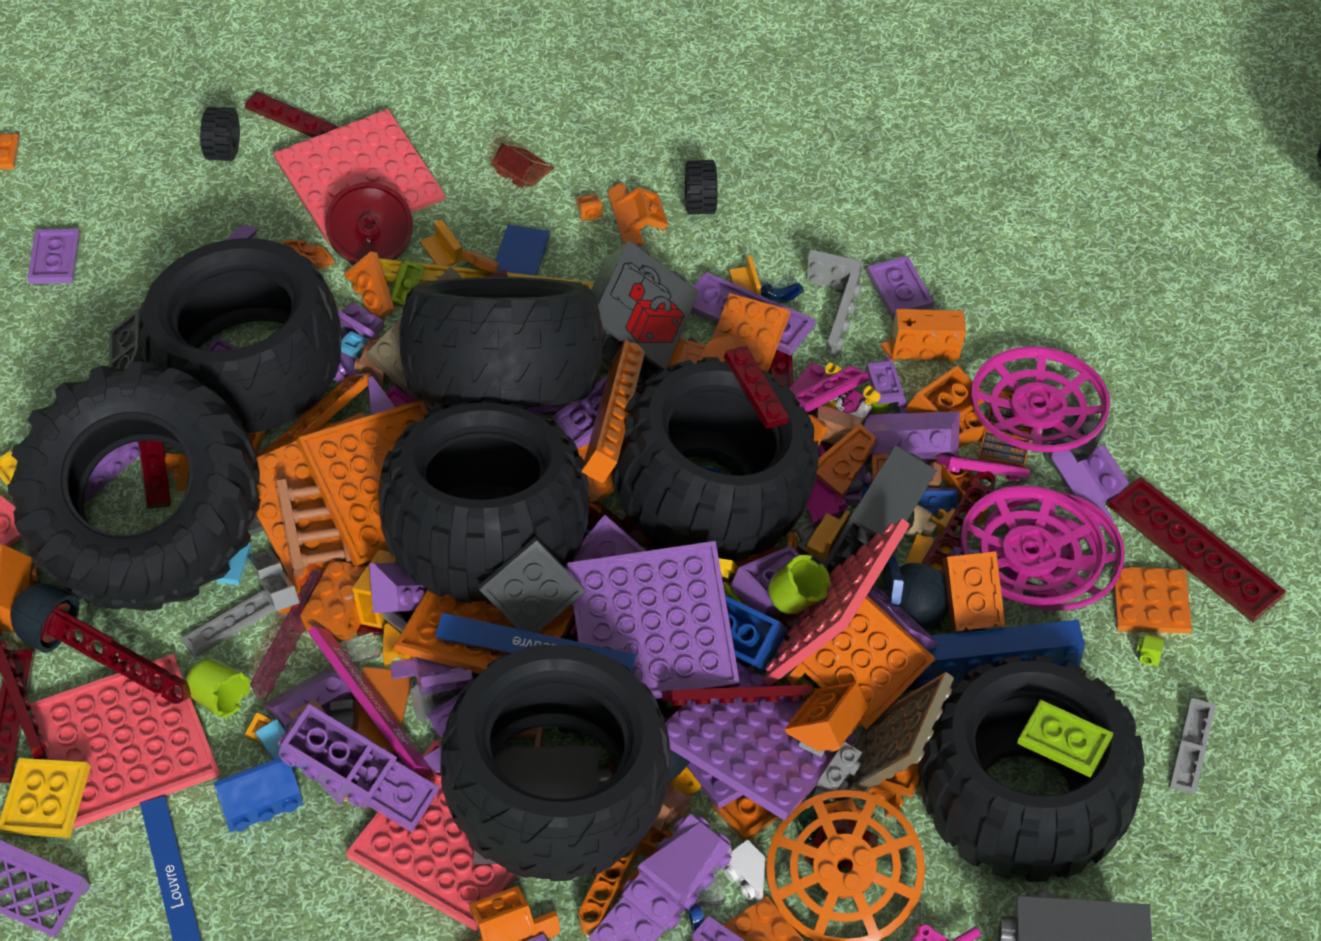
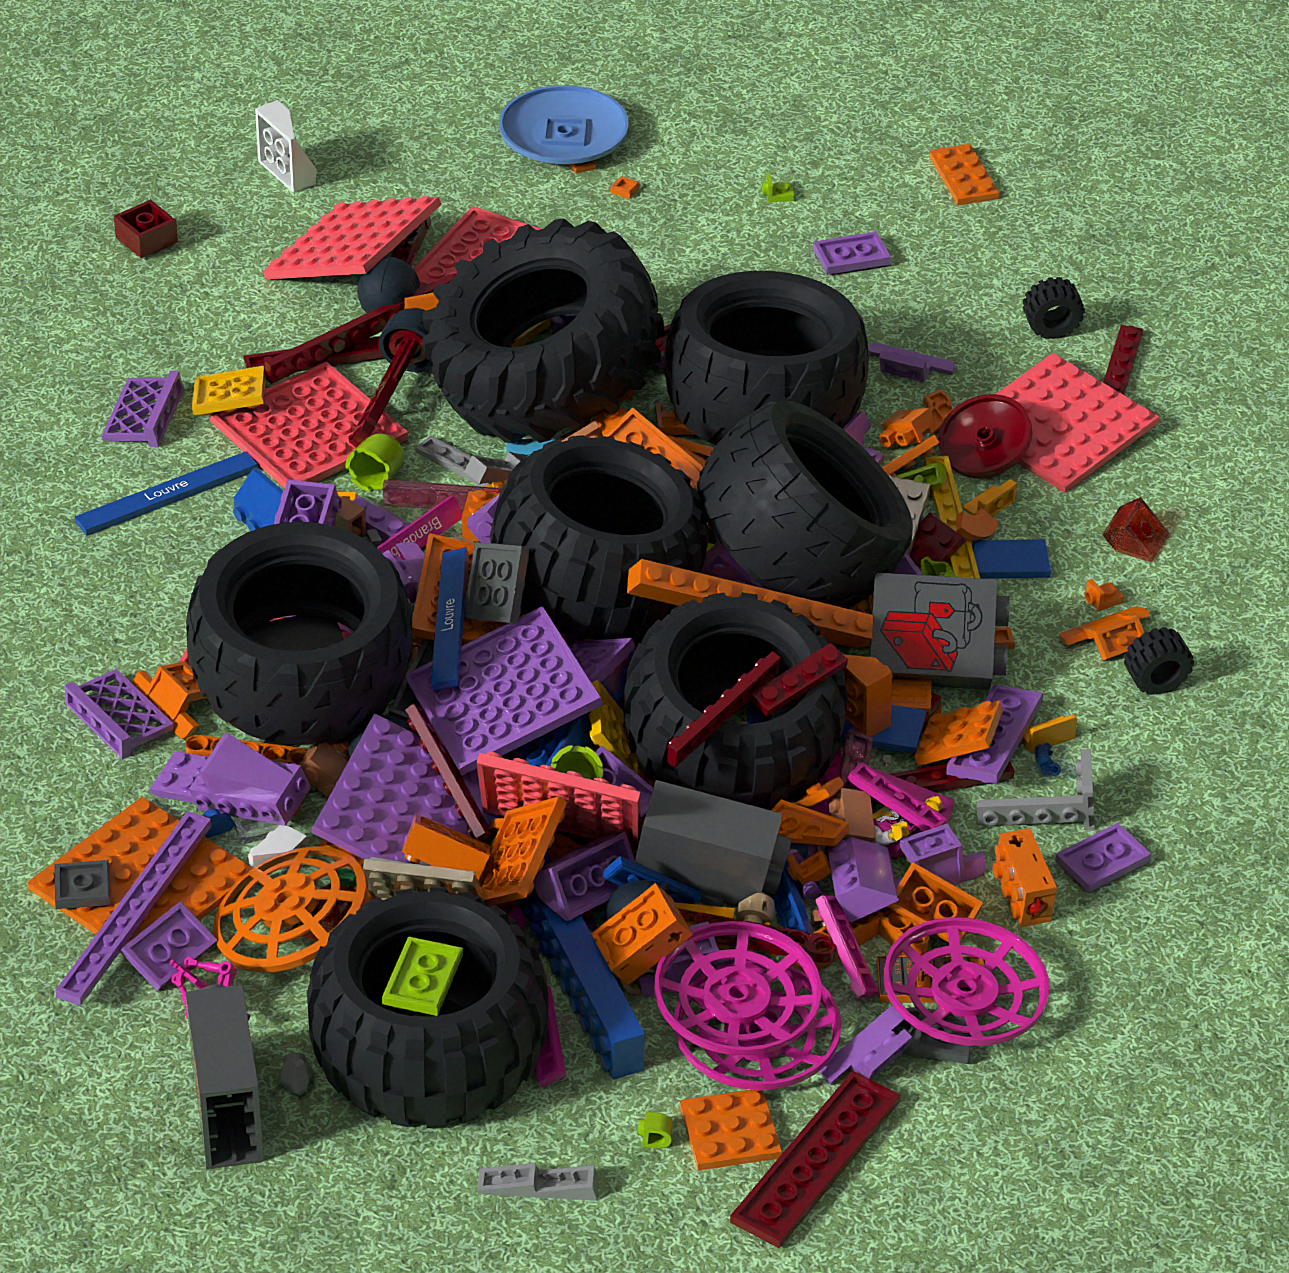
camera: 75 degrees right, 10 degrees down
(338, 271) = (907, 427): none -> orange hips
(784, 446) = (717, 714): none -> dark red plate

